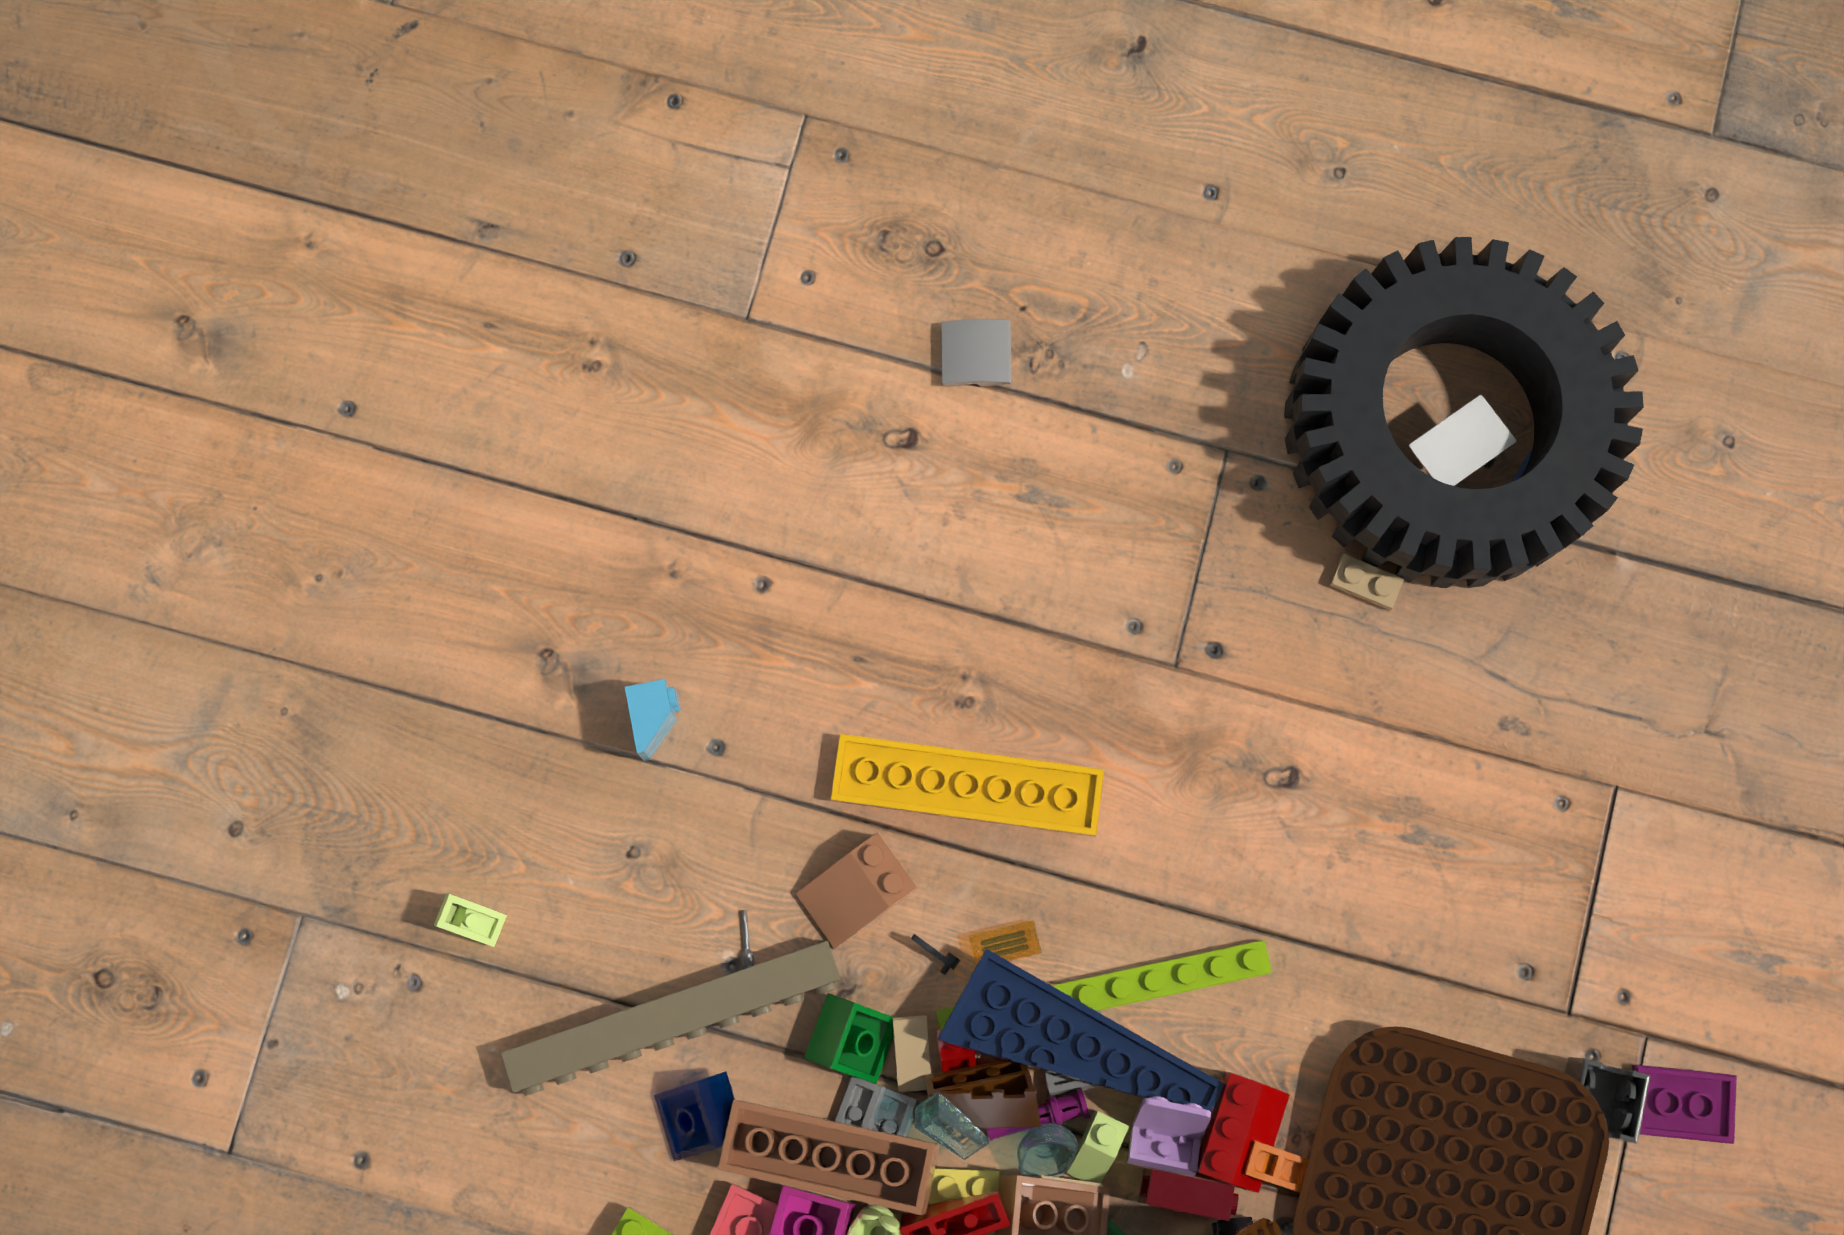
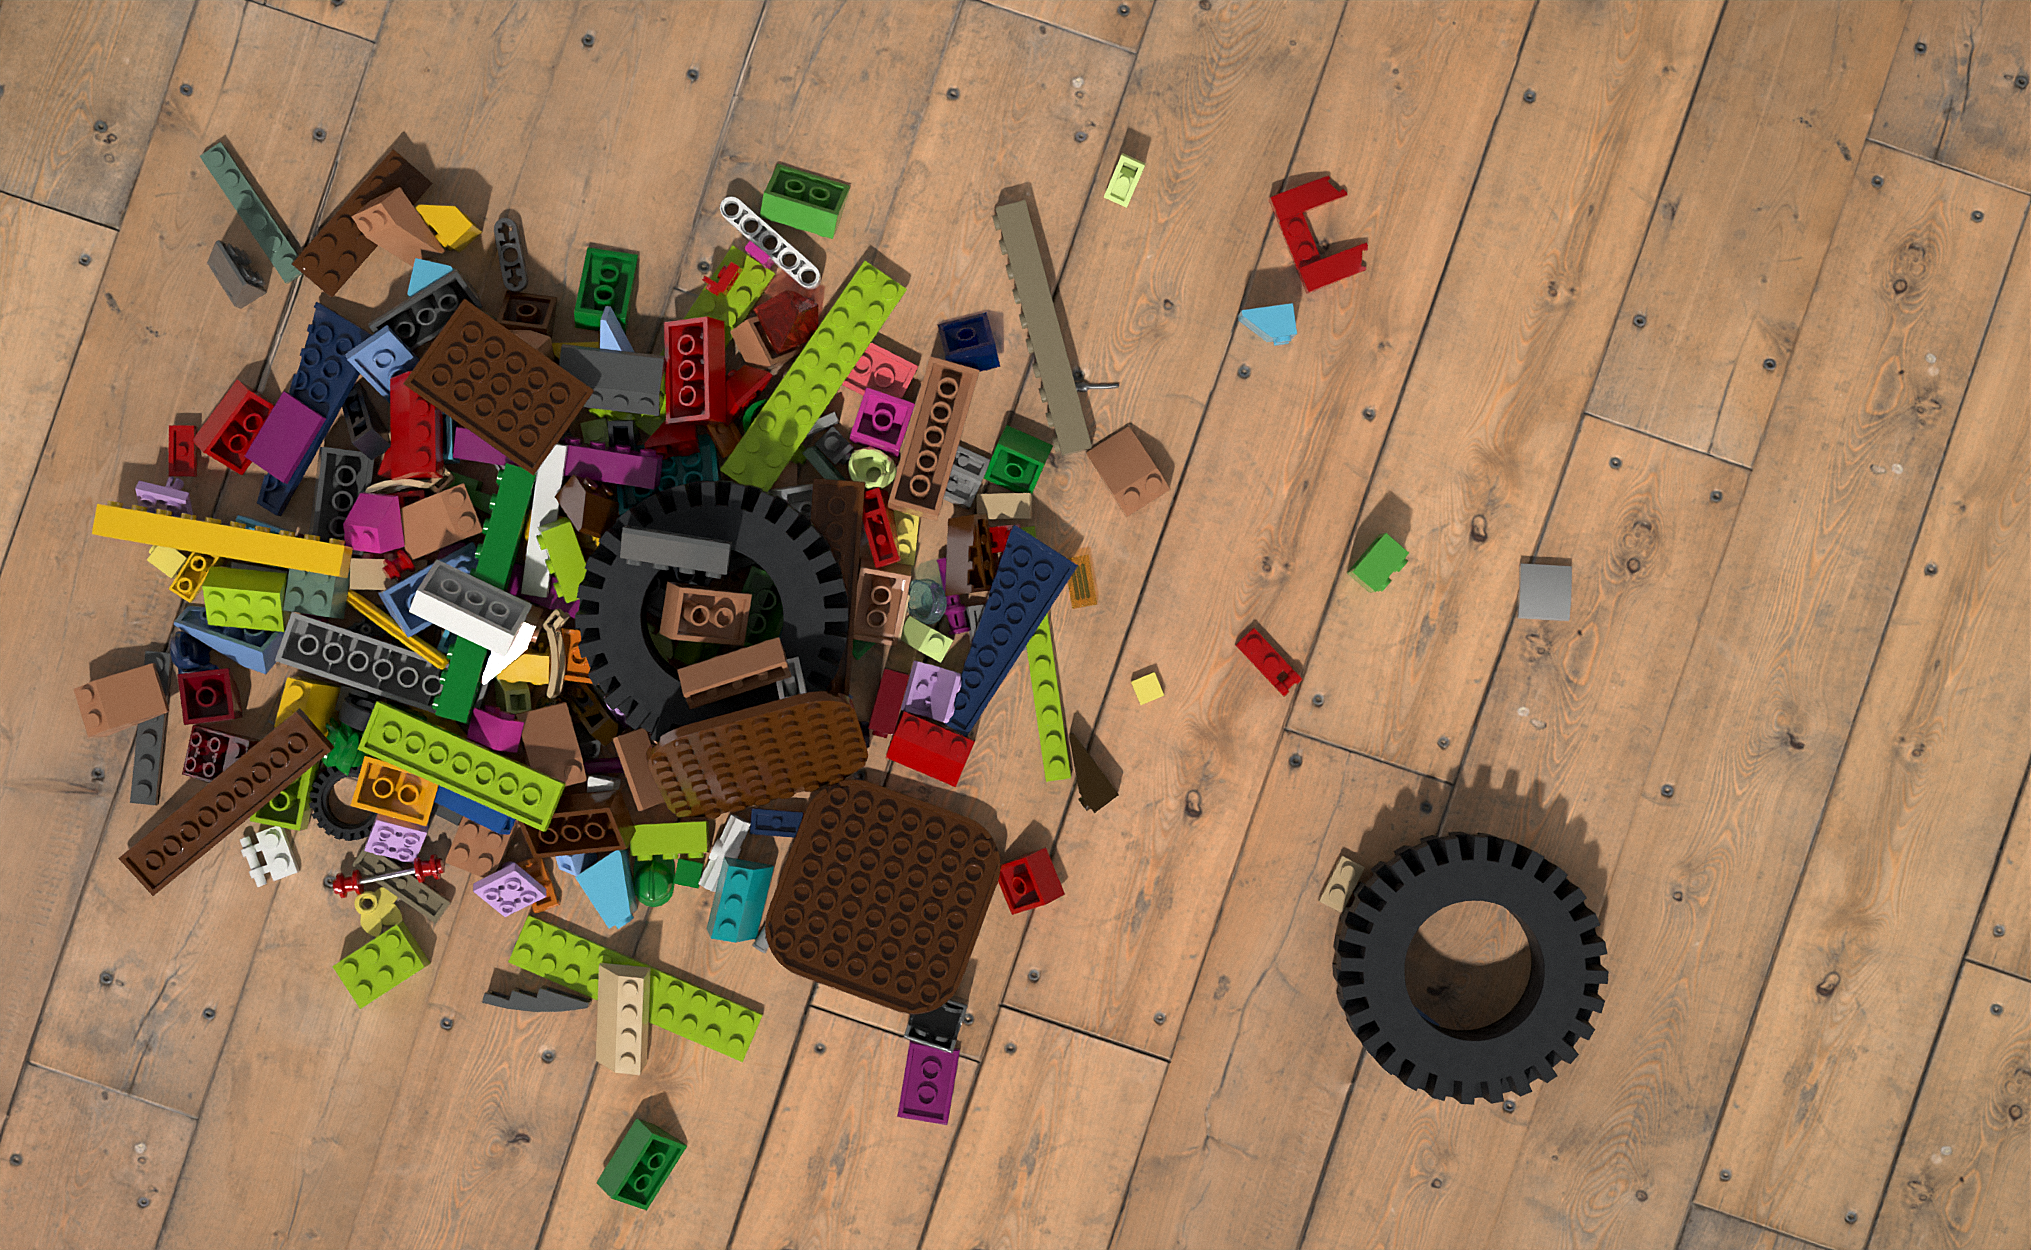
camera: 100 degrees right, 10 degrees up
(505, 702) = (1312, 270): none -> red wedge
(938, 1110) = (962, 521): clear light blue slope -> none
(949, 960) = (1071, 539): black piece -> none
(955, 558) = (1378, 563): none -> bright green brick
(967, 785) = (1202, 561): yellow plate -> none
(1090, 693) = (1267, 661): none -> red plate
(1137, 846) = (1147, 688): none -> light yellow tile
(1269, 910) = (1092, 783): none -> dark brown slope
(1276, 1166) = (904, 770): orange slope -> none
(1405, 985) = (1029, 881): none -> red slope
(1463, 442) = (1444, 964): white sticker -> none

